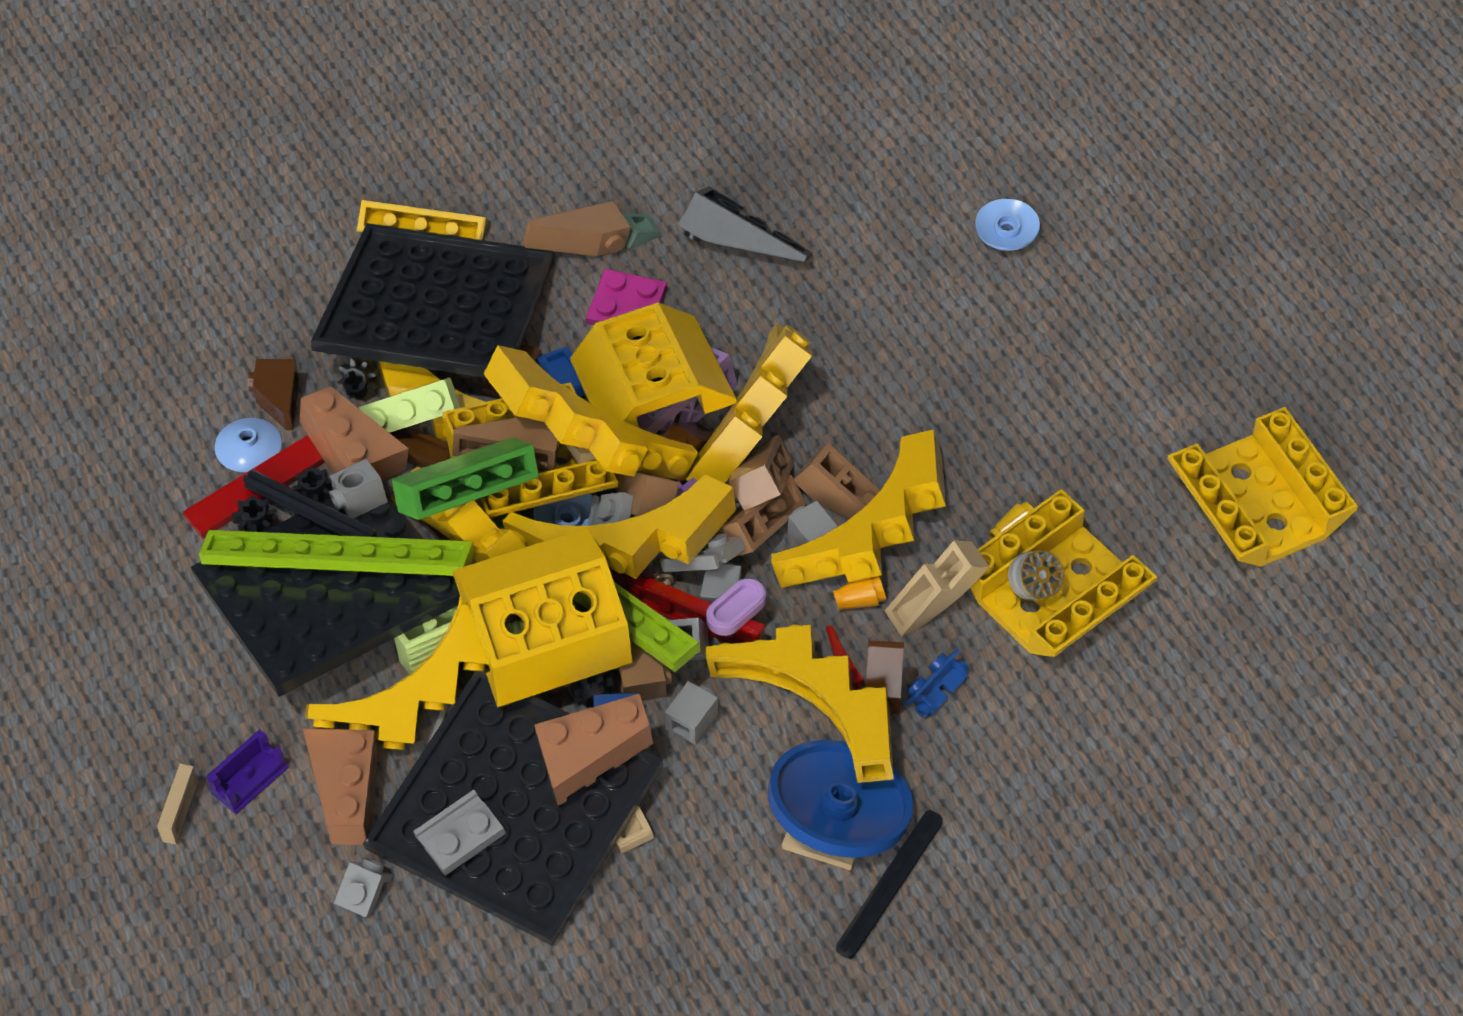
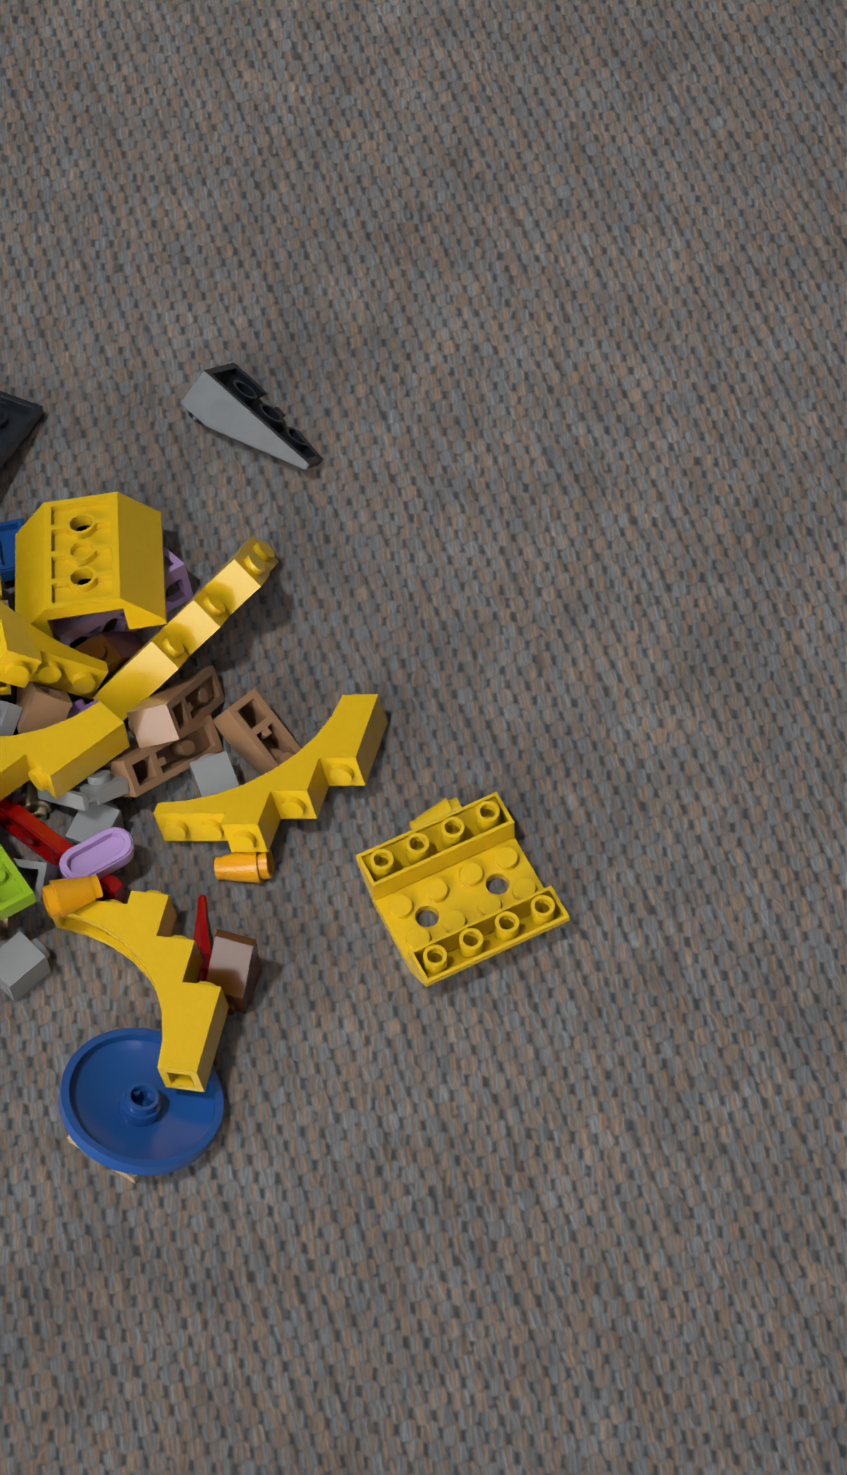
camera: 15 degrees right, 5 degrees up
(581, 231) = (76, 390): medium nougat slope -> none
(623, 293) = (103, 470): dark pink plate -> none
(641, 229) = (142, 397): sand green slope -> none
(725, 640) = (70, 894): none -> light orange cone
(889, 884) = (168, 1209): black axle -> none
(936, 587) = (324, 877): tan slope -> none
(945, 673) = (281, 997): blue hinge -> none
(1007, 214) = (544, 455): light blue dish -> none
(1034, 575) = (435, 887): light grey wheel -> none
(1284, 484) = (755, 835): yellow slope -> none

